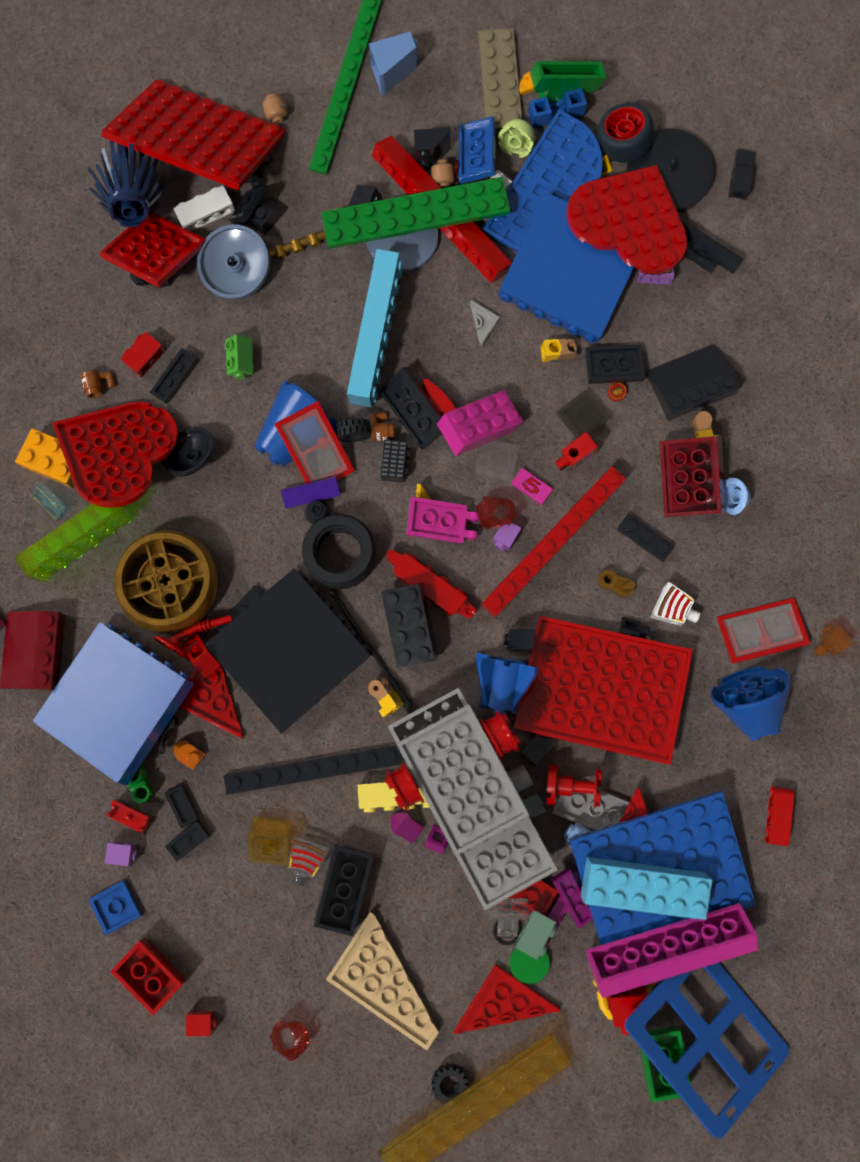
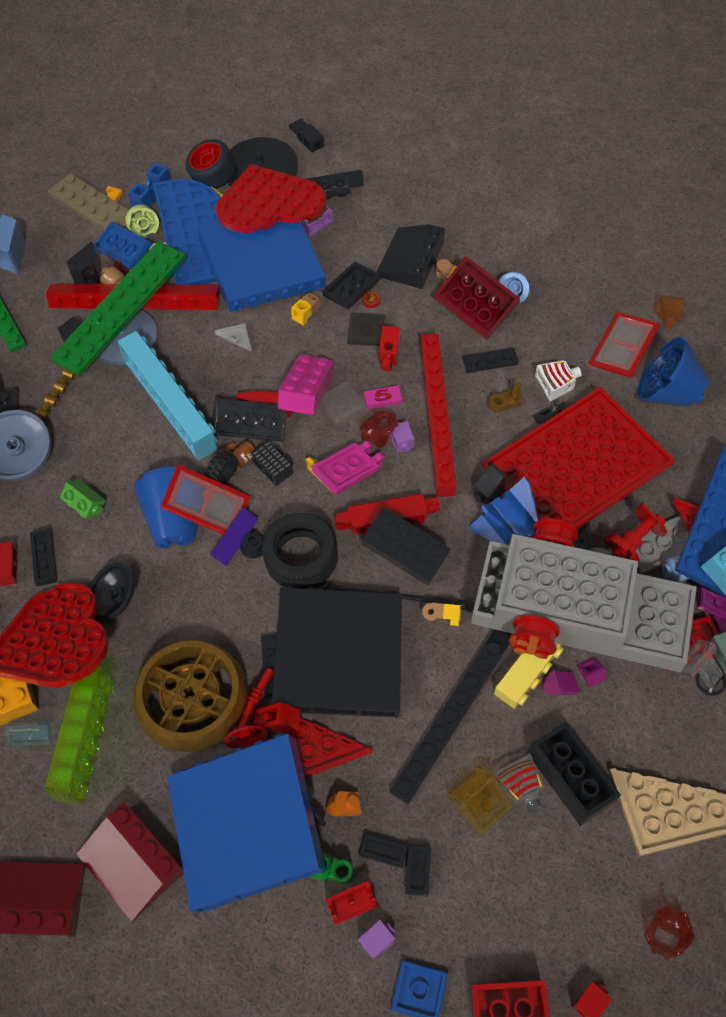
camera: 45 degrees left, 20 degrees down
(556, 77) = (134, 164): green brick -> none

